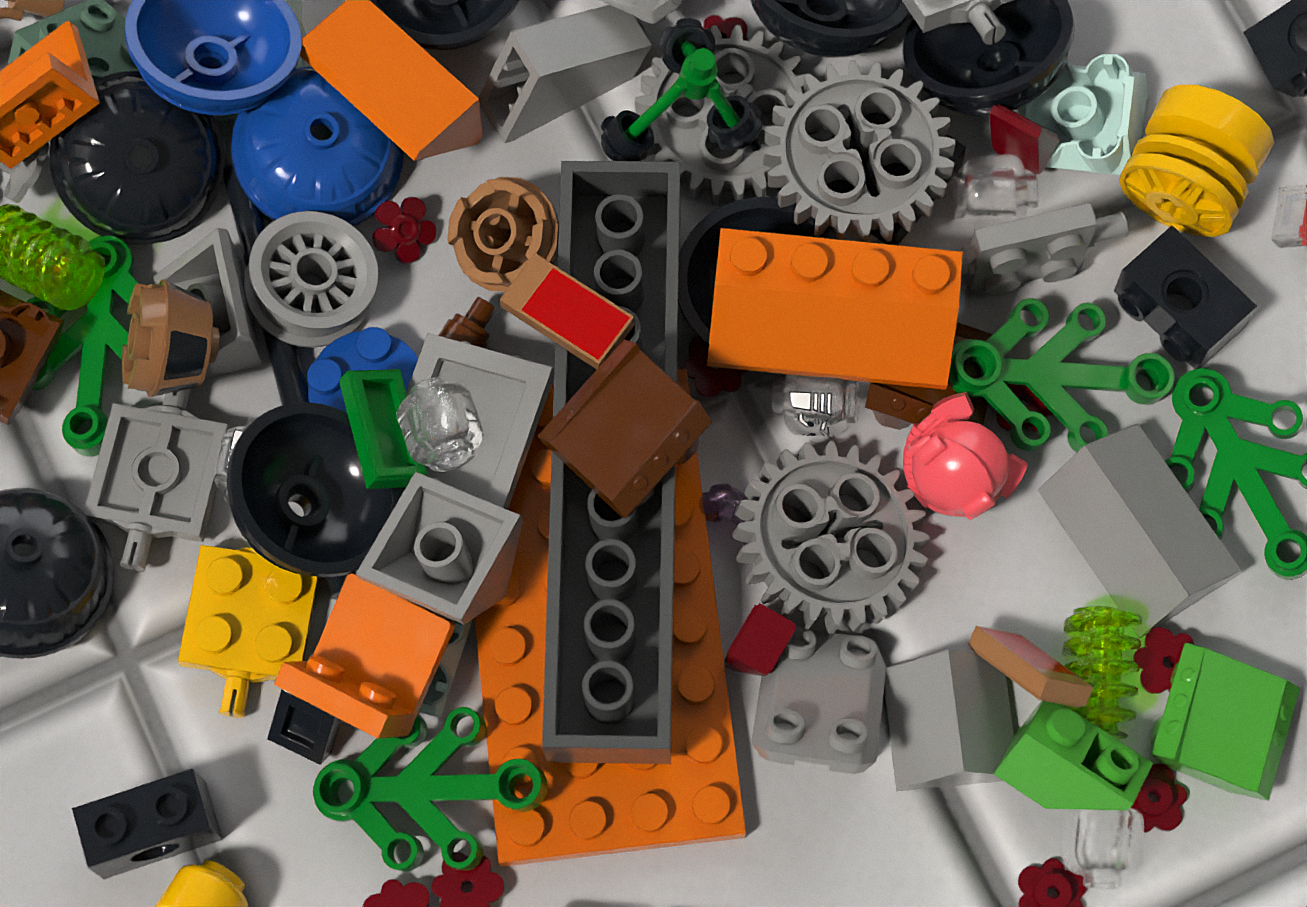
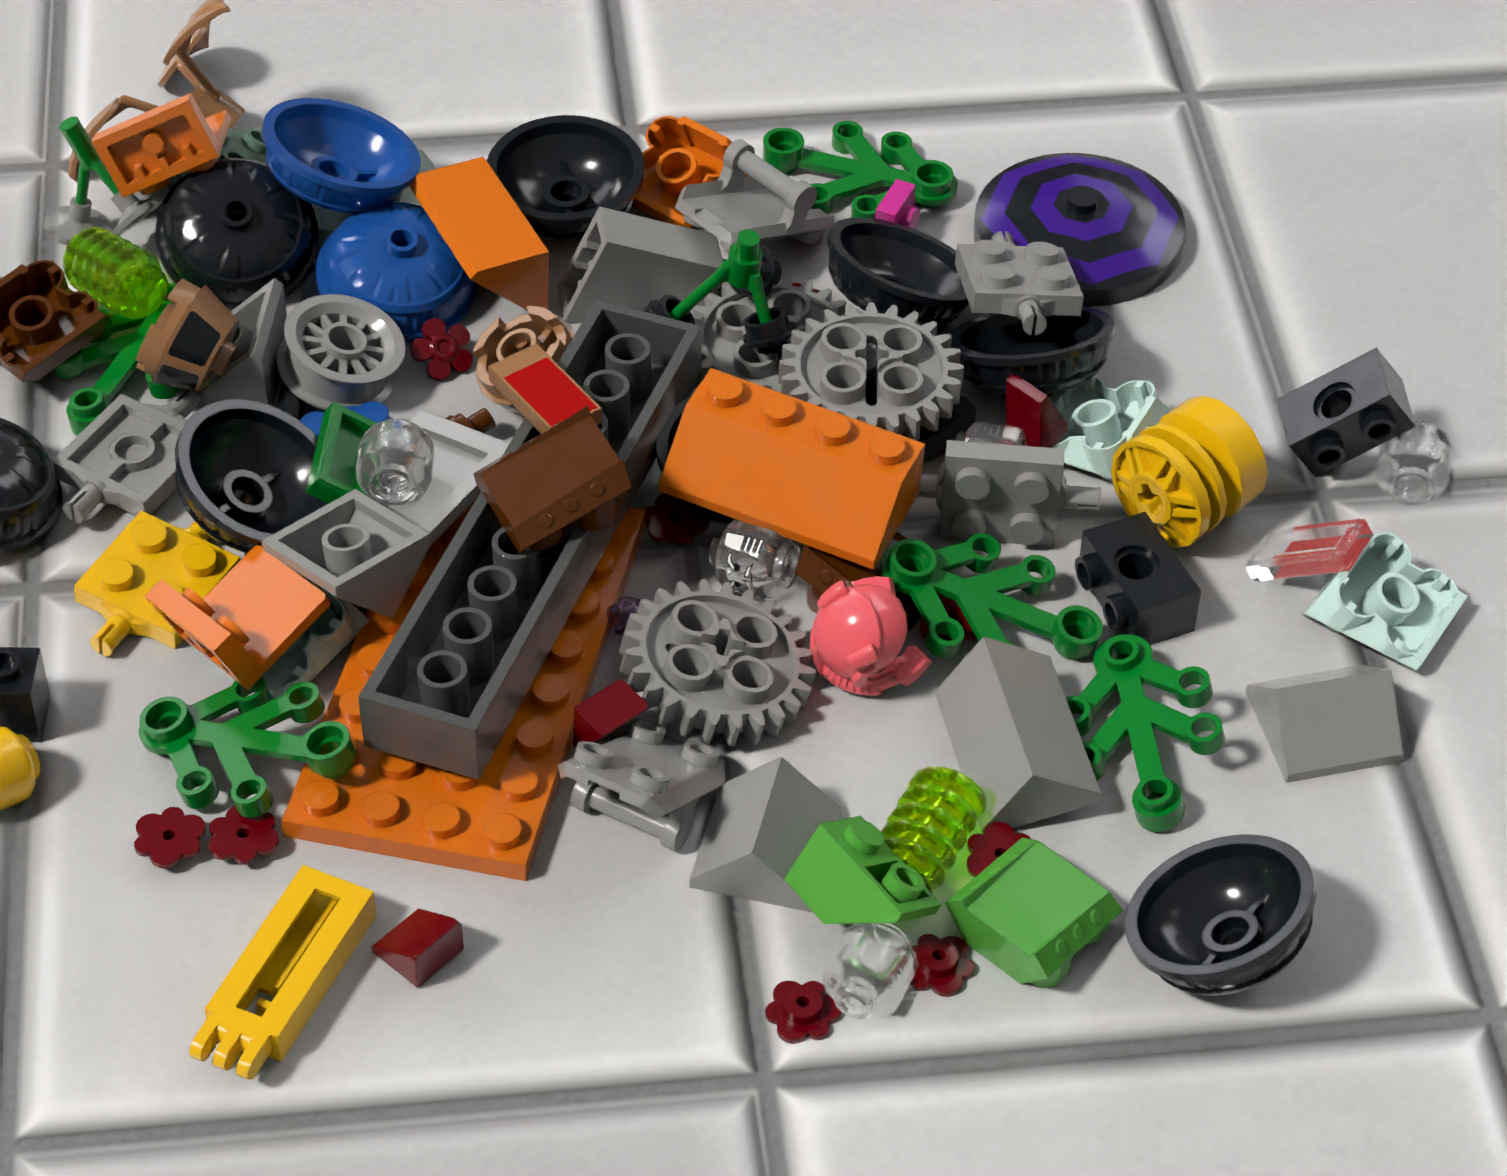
camera: 15 degrees right, 25 degrees down
(303, 728) = (162, 662): black plate -> none
(1030, 667) = (856, 796): medium nougat tile -> none

